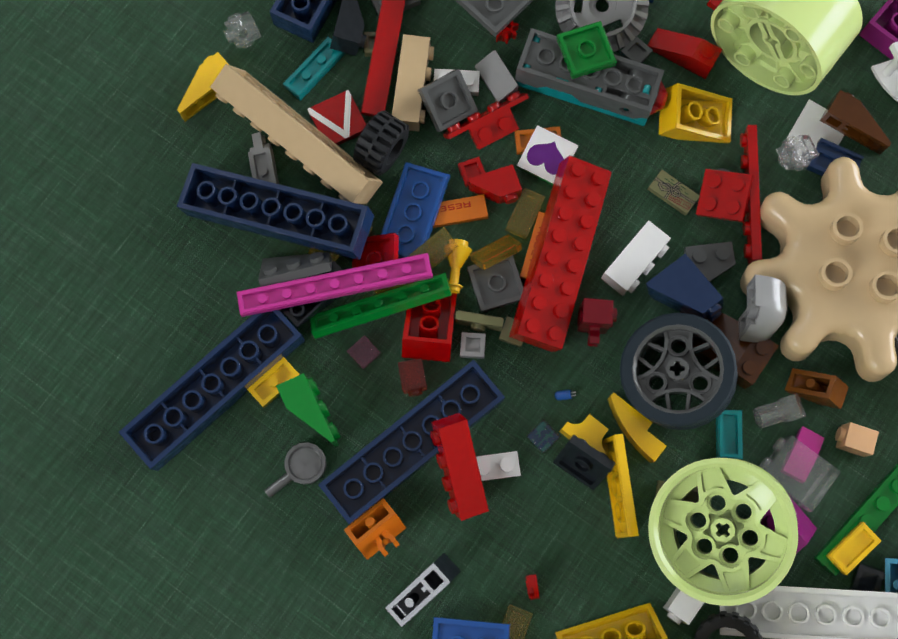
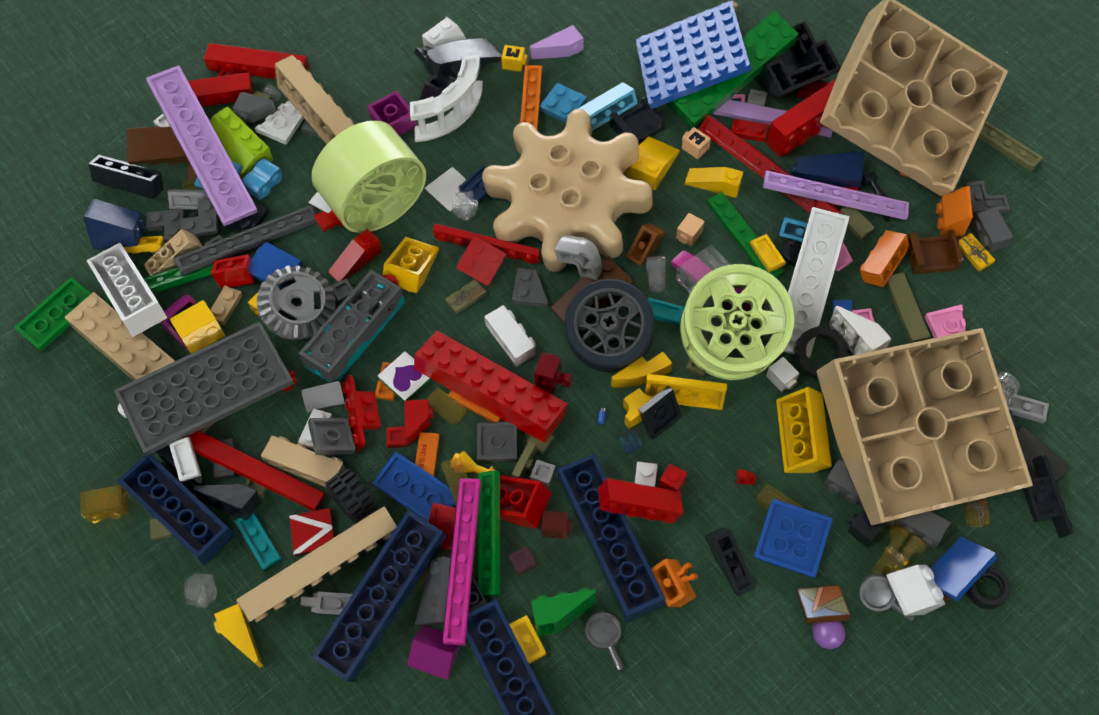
camera: 70 degrees left, 15 degrees down
(233, 278) = (430, 653): none -> magenta slope
(496, 252) = (472, 434): clear yellow tile -> none
(503, 498) = (673, 478): none -> red brick
(586, 50) = (333, 317): green tile -> none
(686, 290) = (549, 302): dark blue slope -> none
(853, 120) = (452, 163): reddish brown slope -> none

